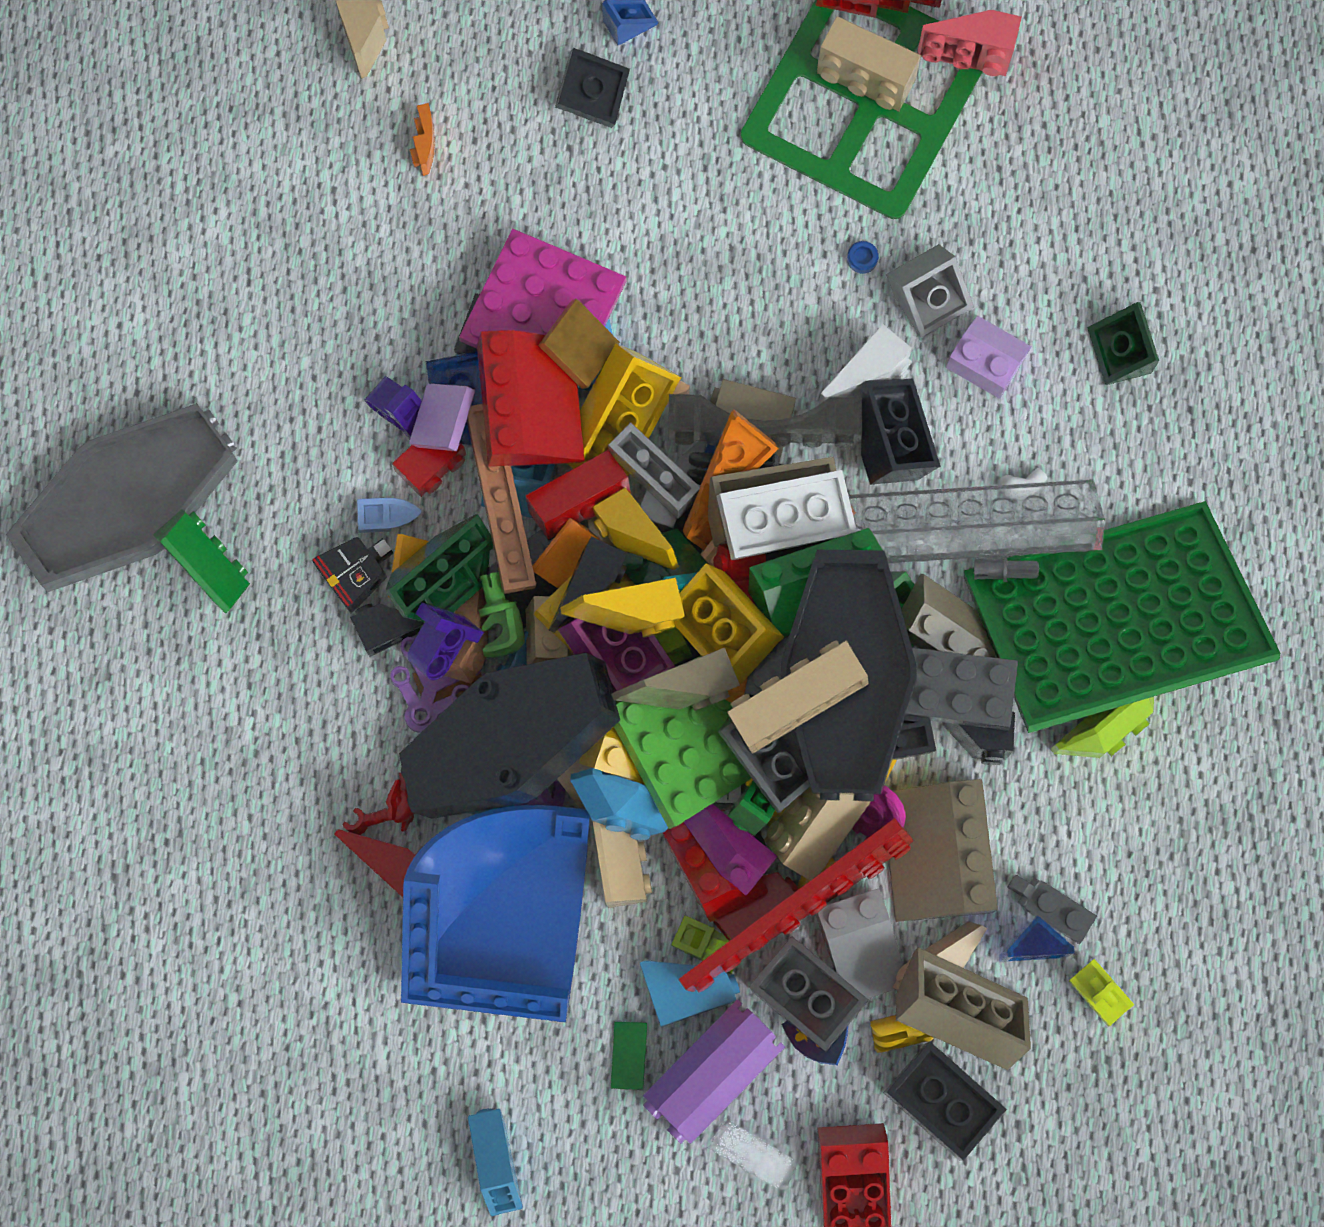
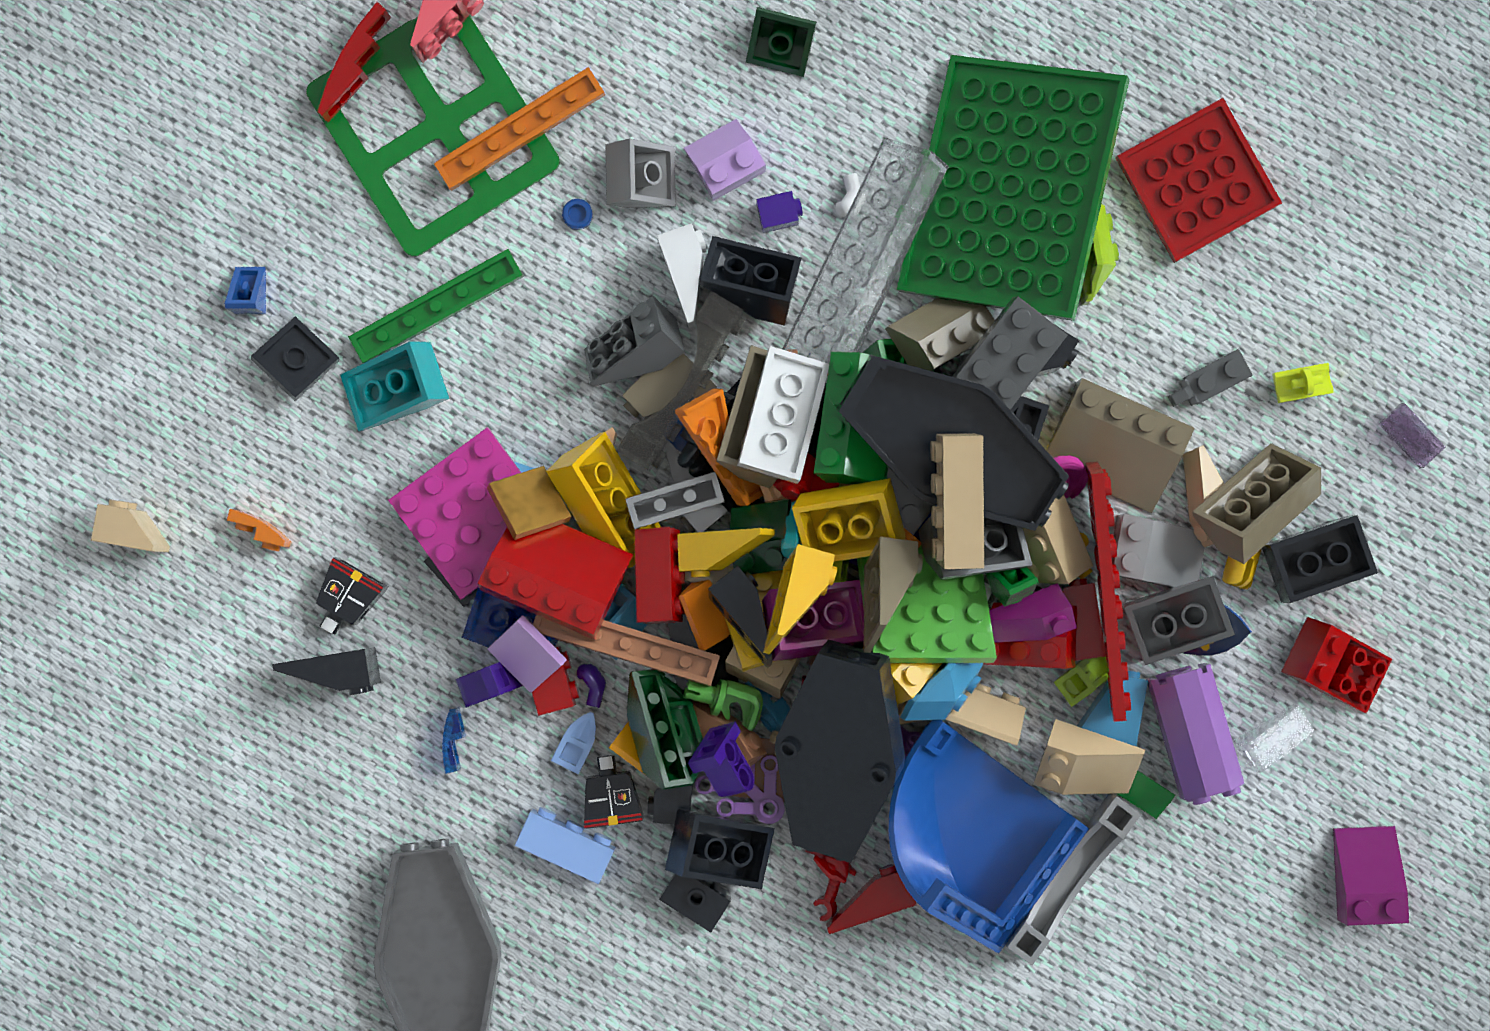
camera: 60 degrees left, 10 degrees up
(203, 559) = (535, 922): green slope -> none
(287, 555) = (566, 844): none -> light blue brick
(302, 696) = (696, 900): none -> black brick
(337, 399) = (453, 730): none -> clear blue slope
(343, 279) = (340, 671): none -> black slope
(358, 688) = (719, 849): none -> black brick
(408, 244) = (347, 595): none -> black torso
(450, 501) = (595, 682): none -> dark purple arm
(494, 1162) = (1164, 945): dark azure slope -> none
(509, 1033) = (1106, 830): none -> light grey arch
(618, 184) = (394, 385): none -> teal slope
(626, 982) = (1086, 762): none -> tan slope
(708, 181) = (436, 306): none -> green plate
(775, 365) = (635, 345): none -> dark grey slope
(867, 64) = (413, 111): tan brick -> none
(908, 164) = (519, 129): none -> orange plate
(970, 427) = (779, 211): none -> dark purple brick
(1005, 569) = (919, 255): flat silver axle -> none
(1037, 942) = (1237, 414): clear blue slope -> none
(1114, 1128) = (1412, 435): none -> clear purple plate
(1230, 790) = (1198, 180): none -> red plate

